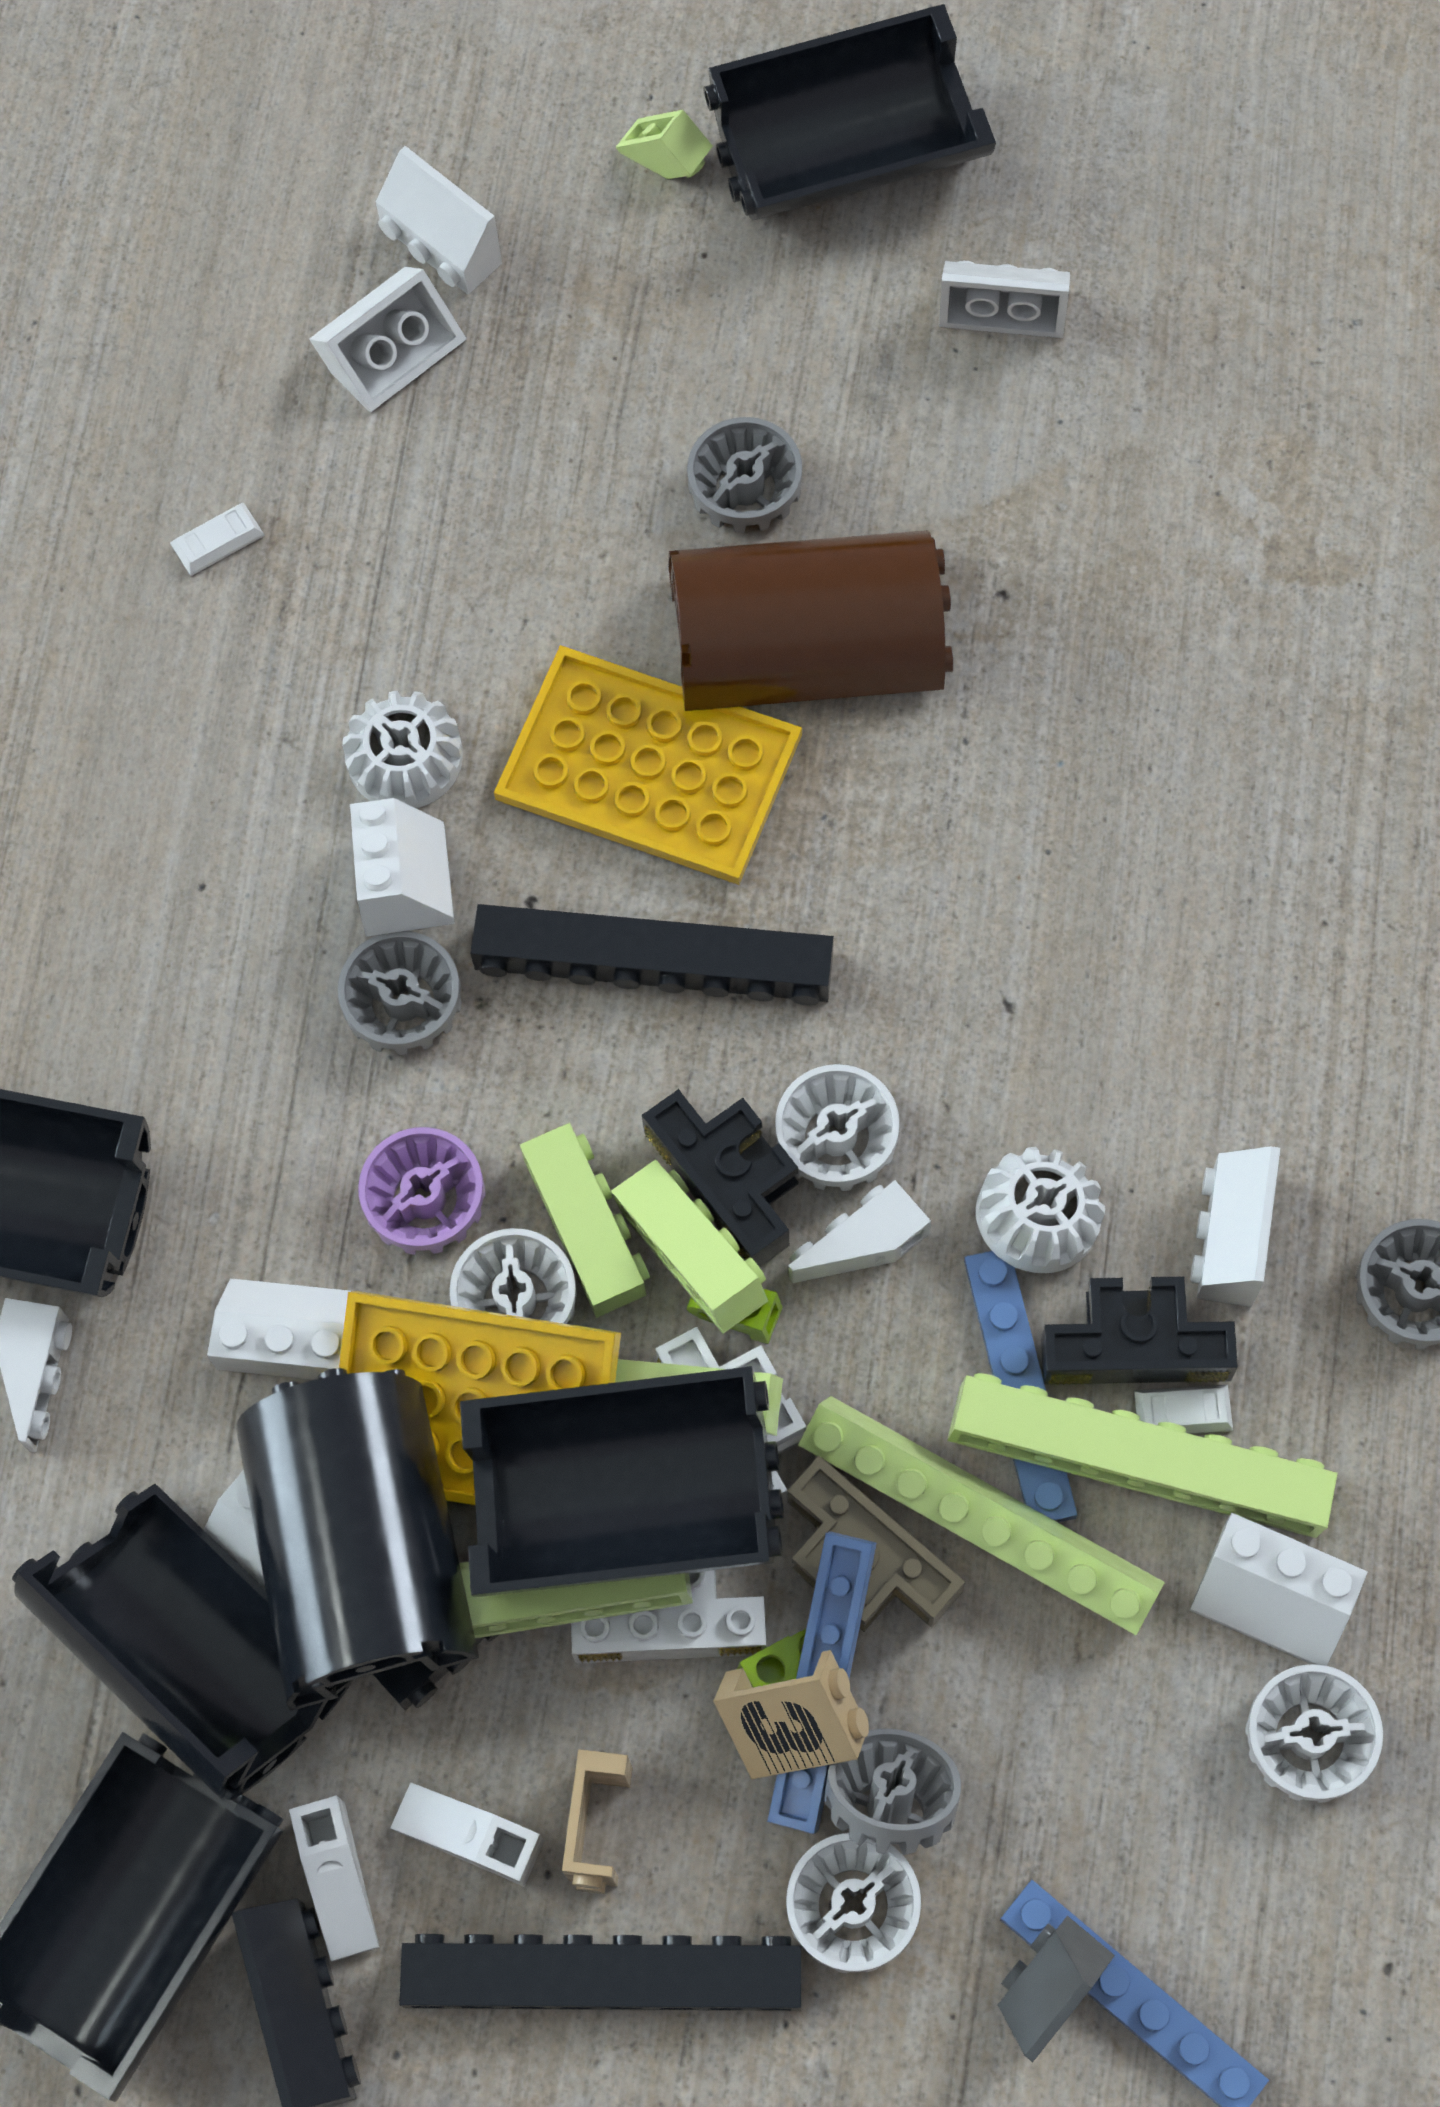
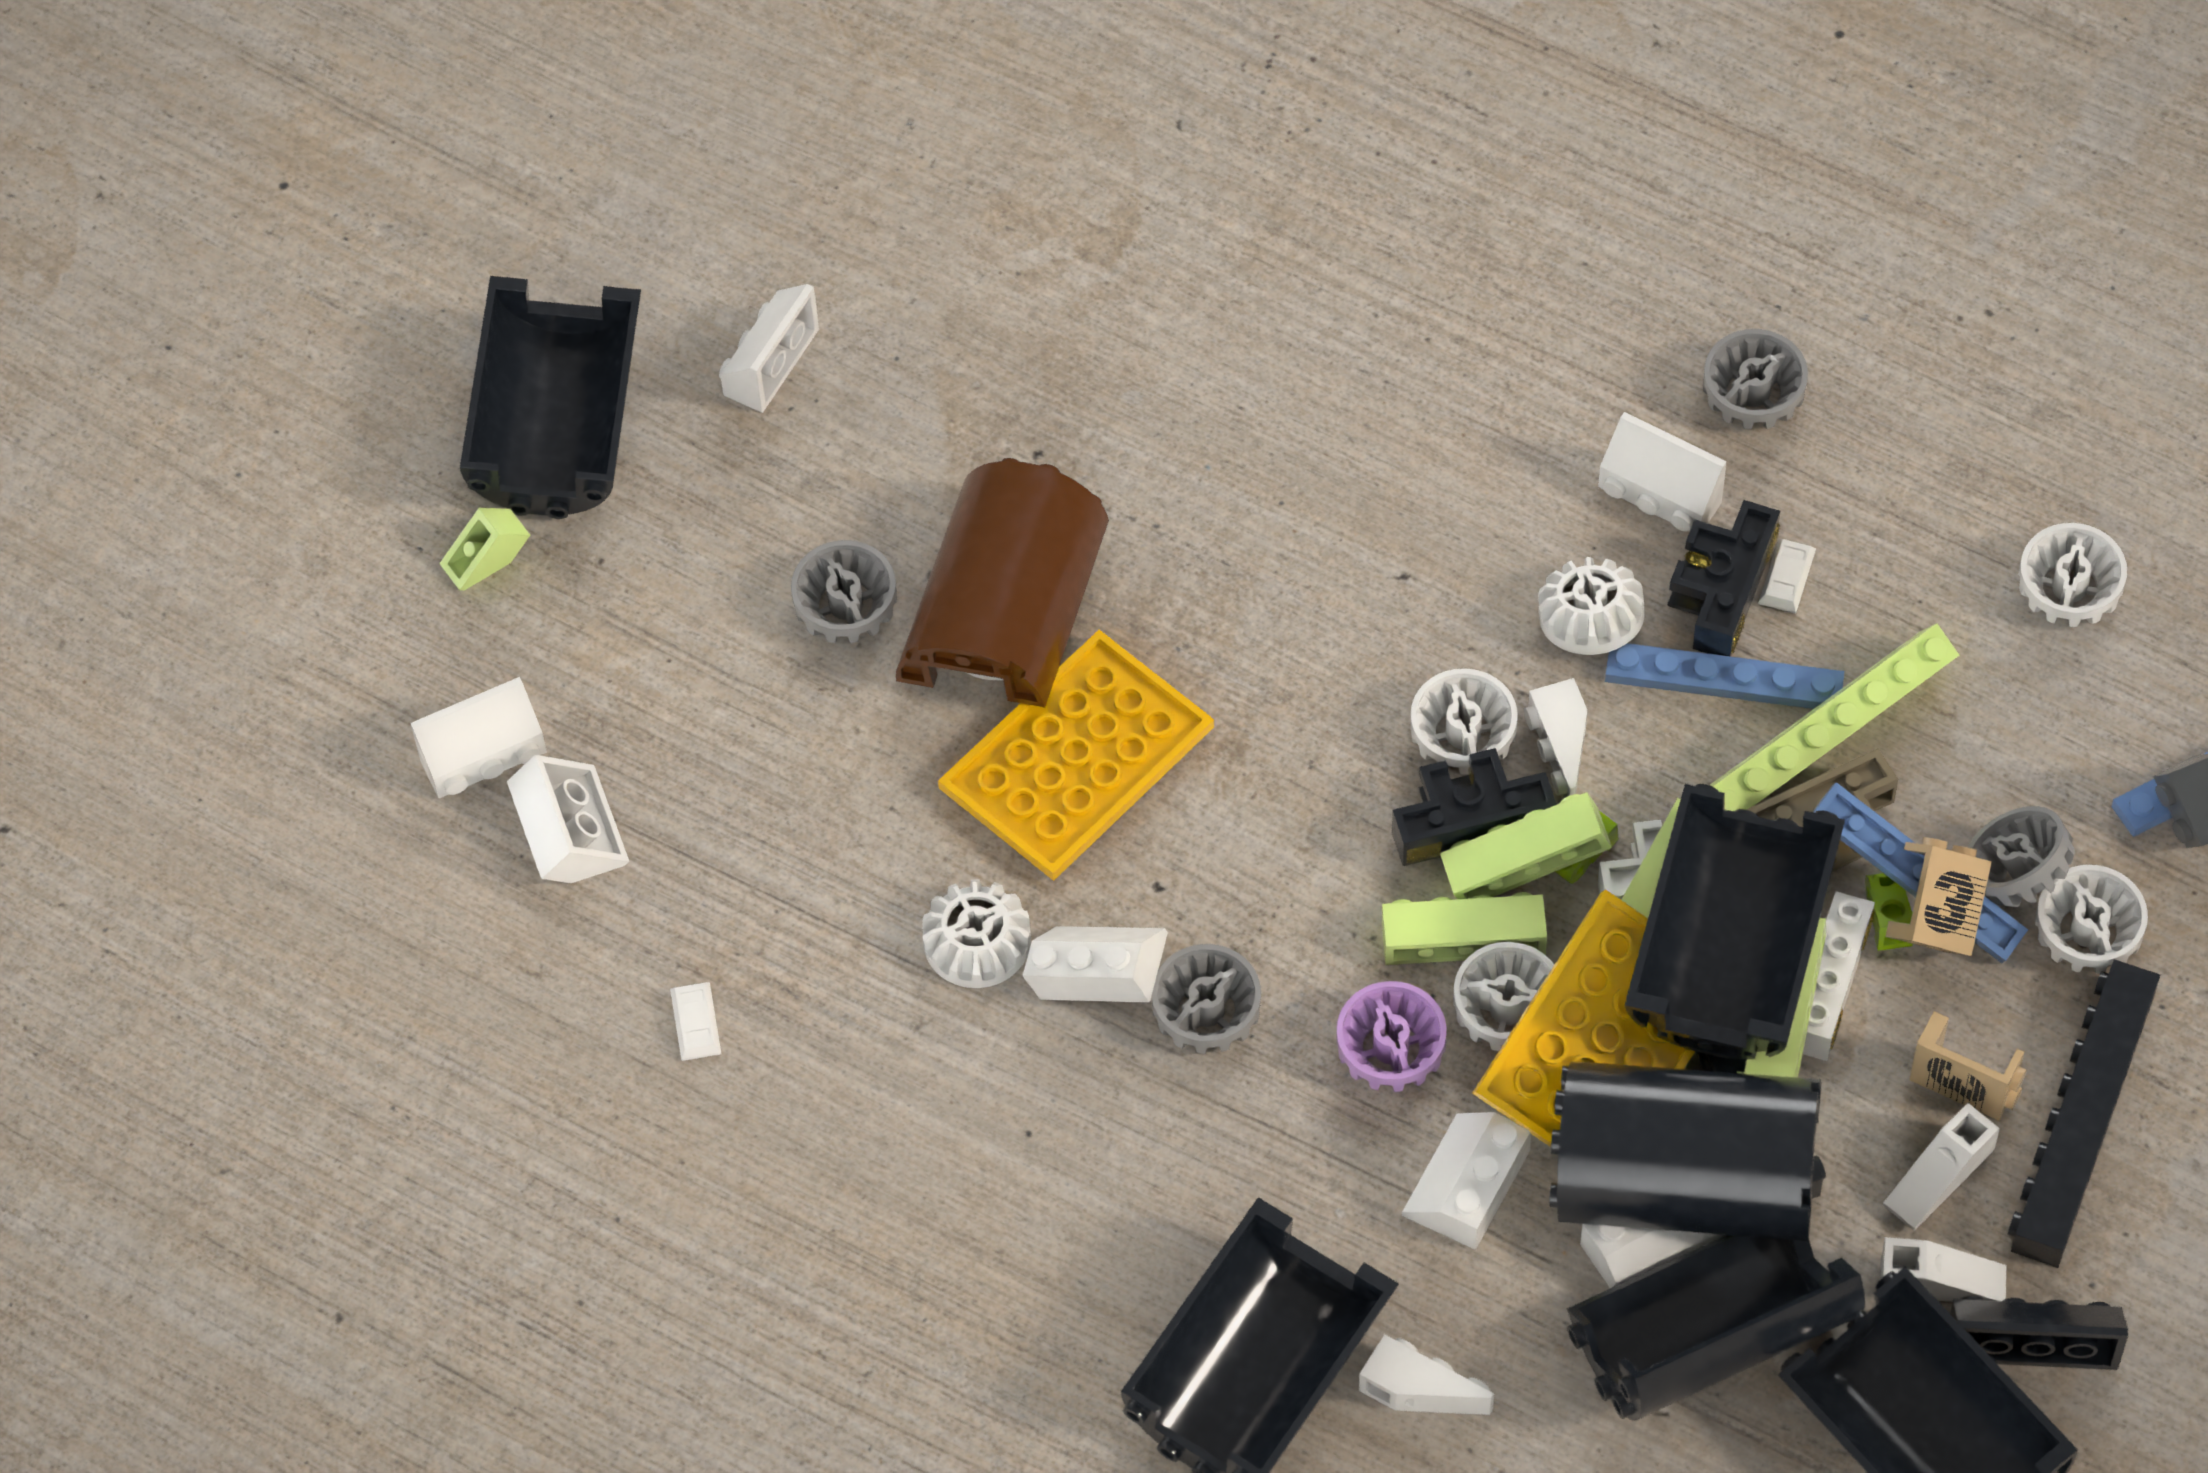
camera: 70 degrees left, 10 degrees down
(652, 954) = (1251, 806): black brick -> none
(1143, 1455) = (1818, 606): yellowish green brick -> none
(1278, 1590) = (1954, 559): white slope -> none

